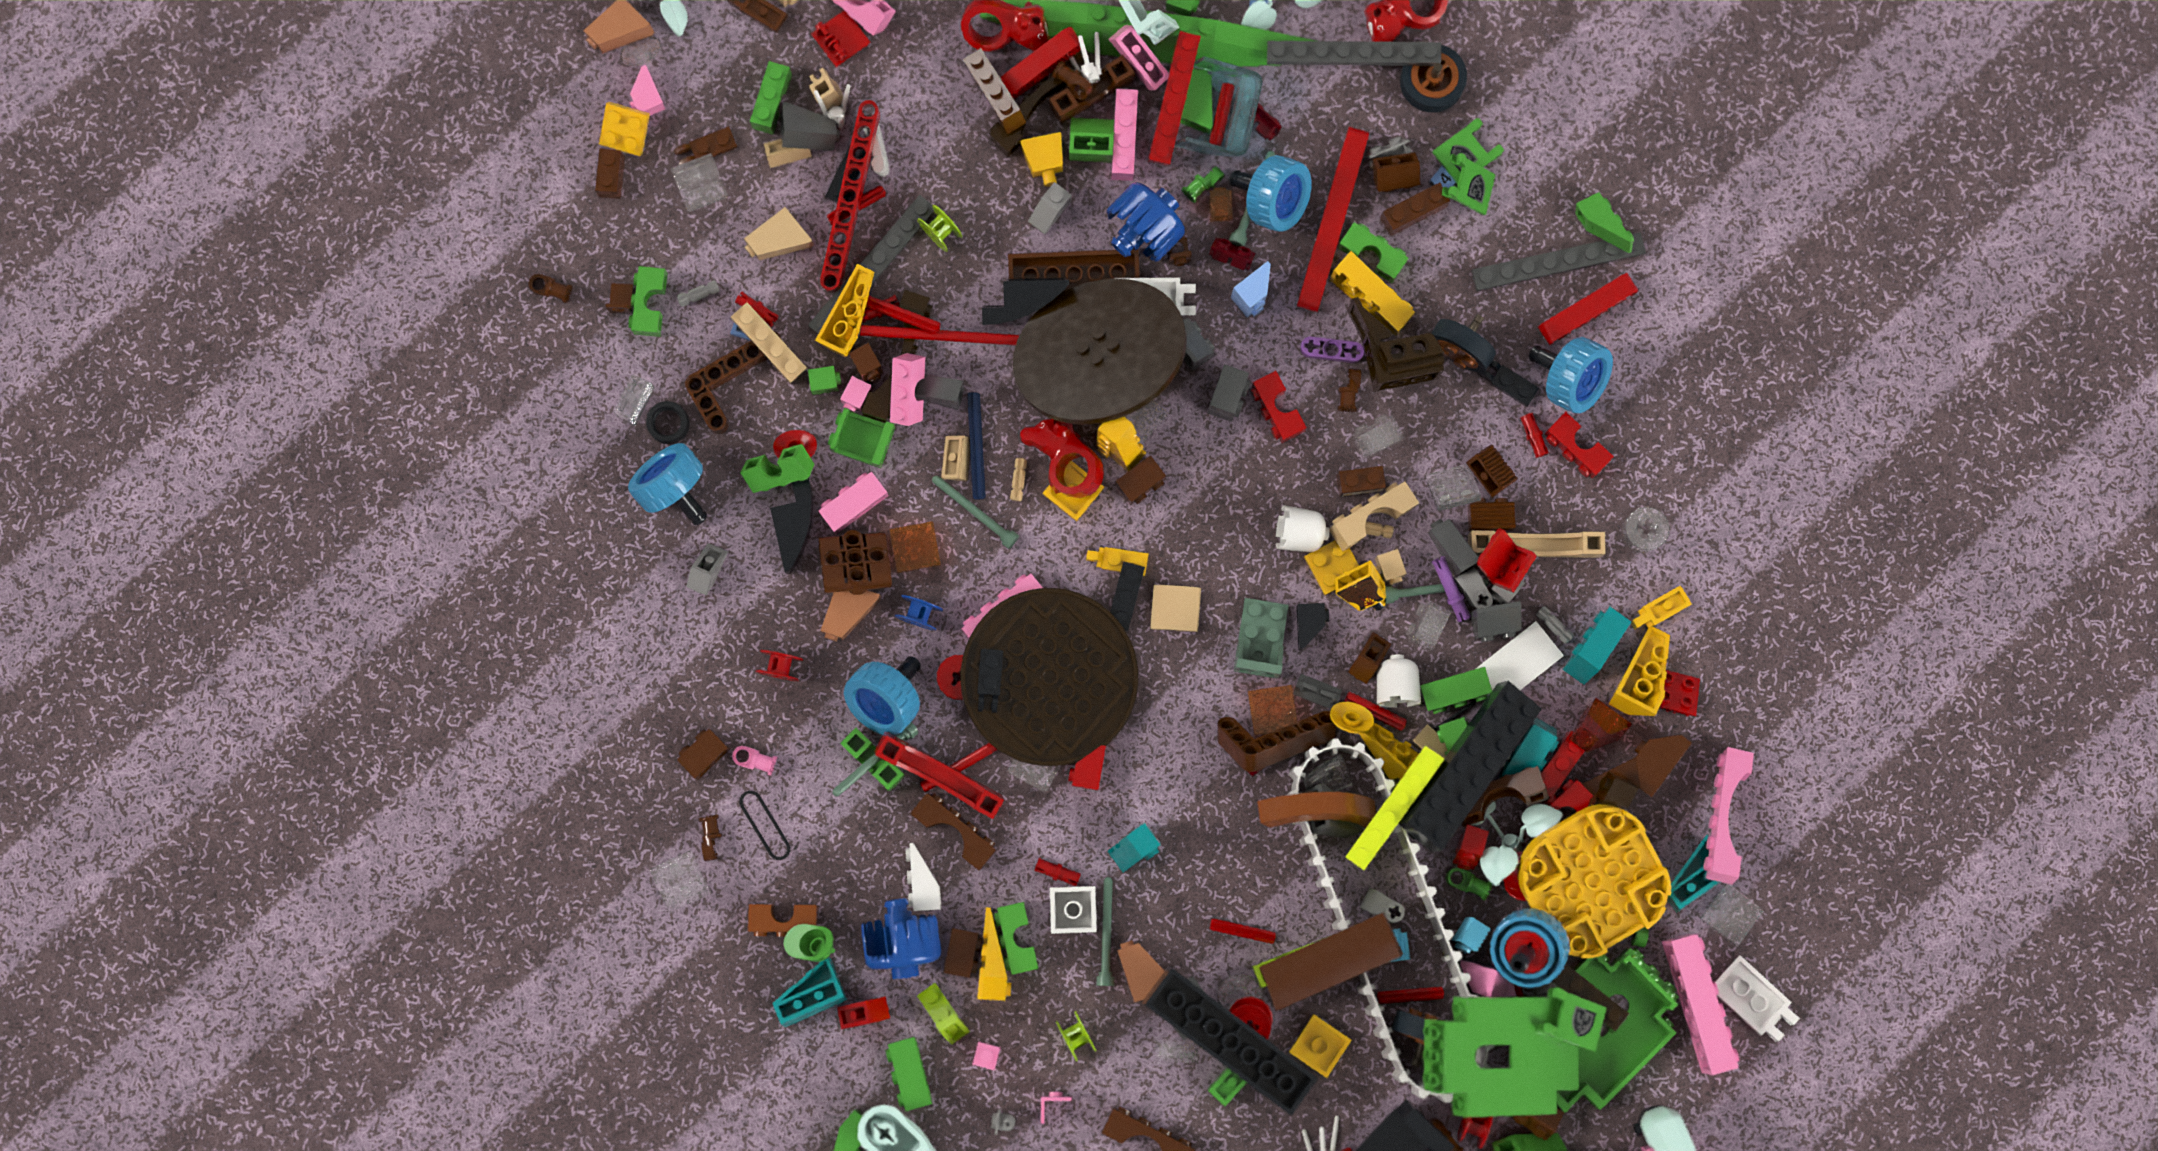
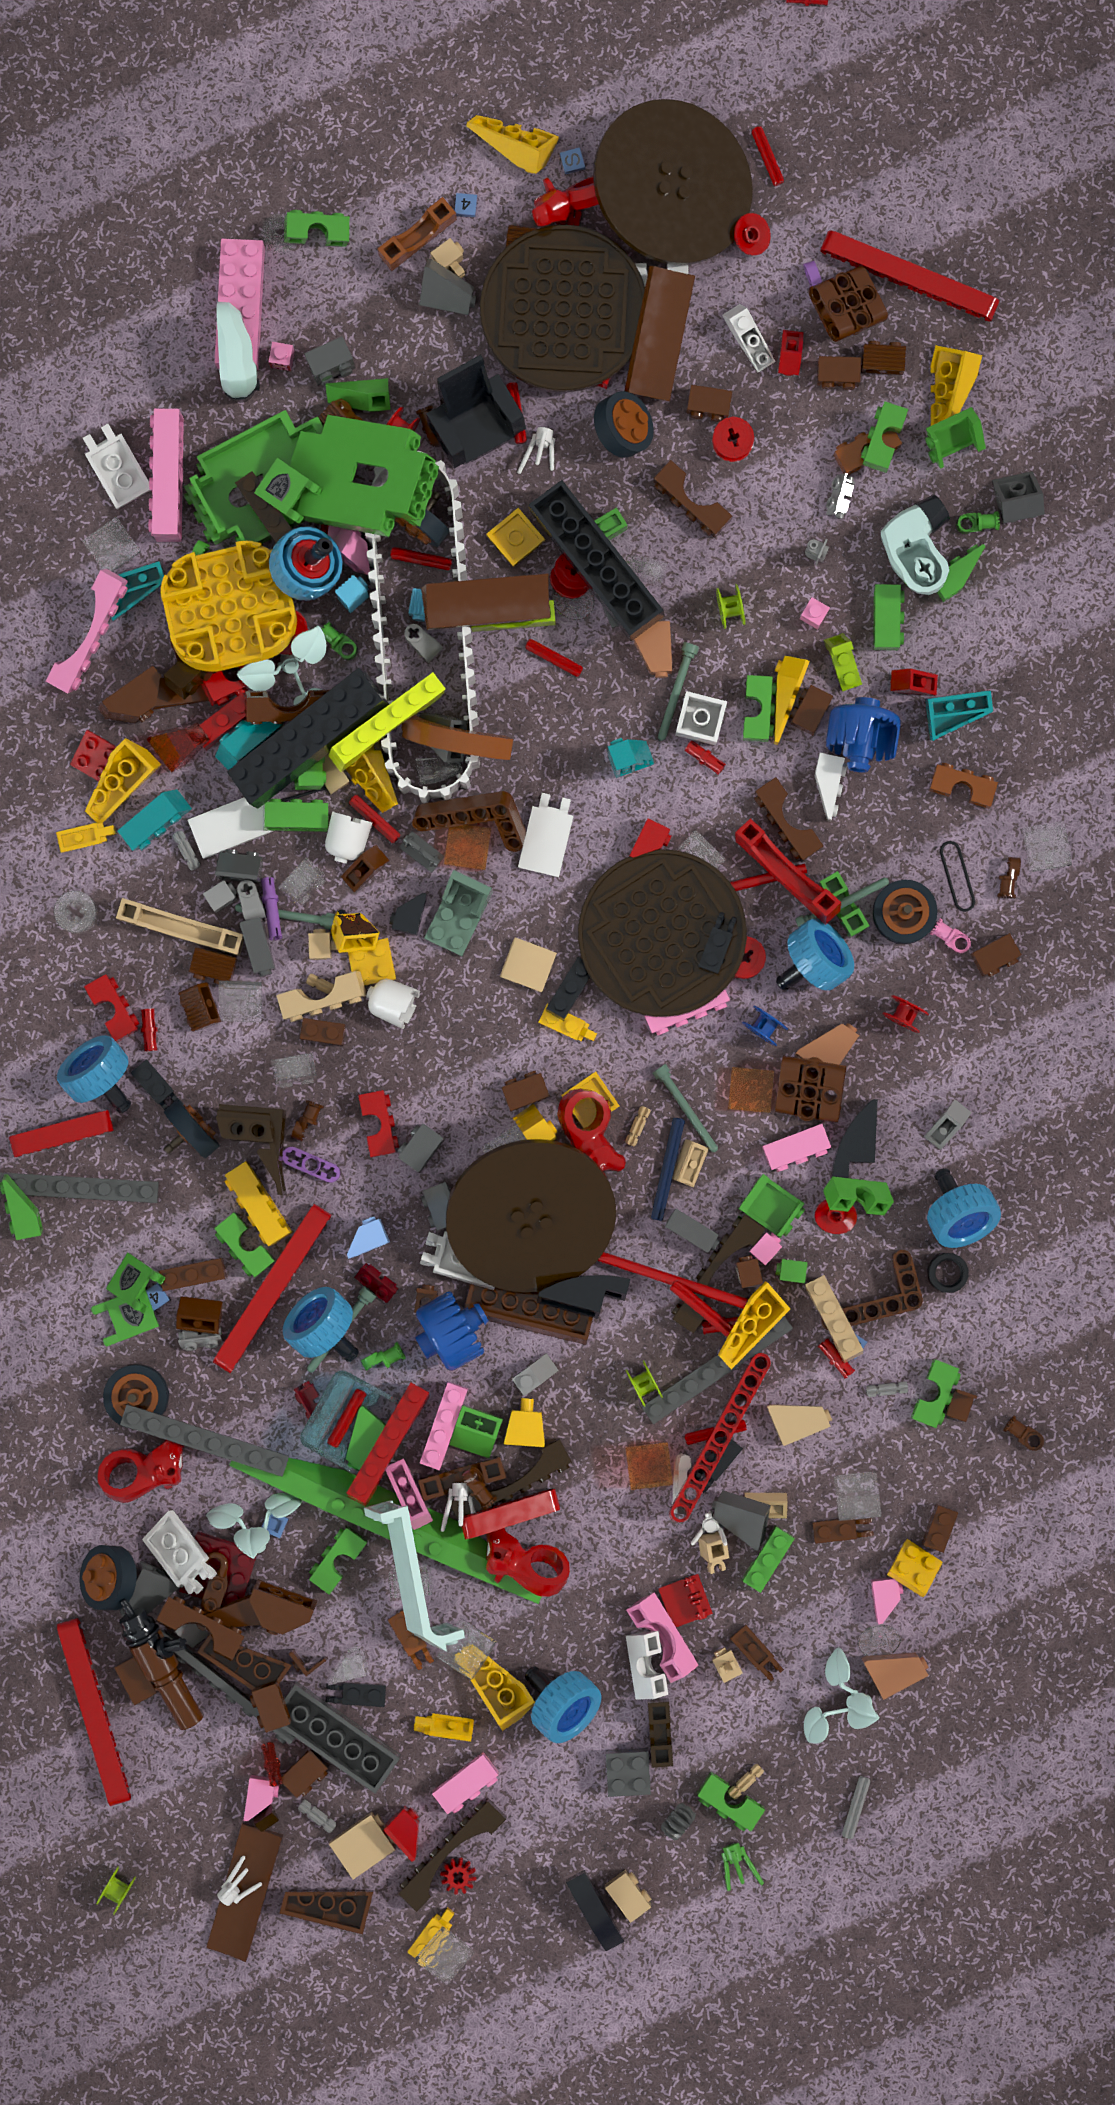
camera: 155 degrees left, 5 degrees up
(633, 399) = (973, 1301): clear brick -> none
(808, 770) = (904, 911): none -> wheel
(809, 942) = (946, 755): bright green piece -> none
(906, 373) = (714, 1250): bright pink arch -> none
(912, 152) = (649, 1465): none -> clear orange brick
(994, 90) = (555, 1501): arch -> none
(1053, 1096) = (765, 560): bright pink bracket -> none
(1195, 742) = (546, 837): none -> white tile
(1220, 204) = (373, 1332): clear orange brick -> none
(1352, 717) = (399, 816): yellow dish -> none
(1470, 847) = (328, 669): red brick -> none
(1504, 561) = (215, 915): red bracket -> none

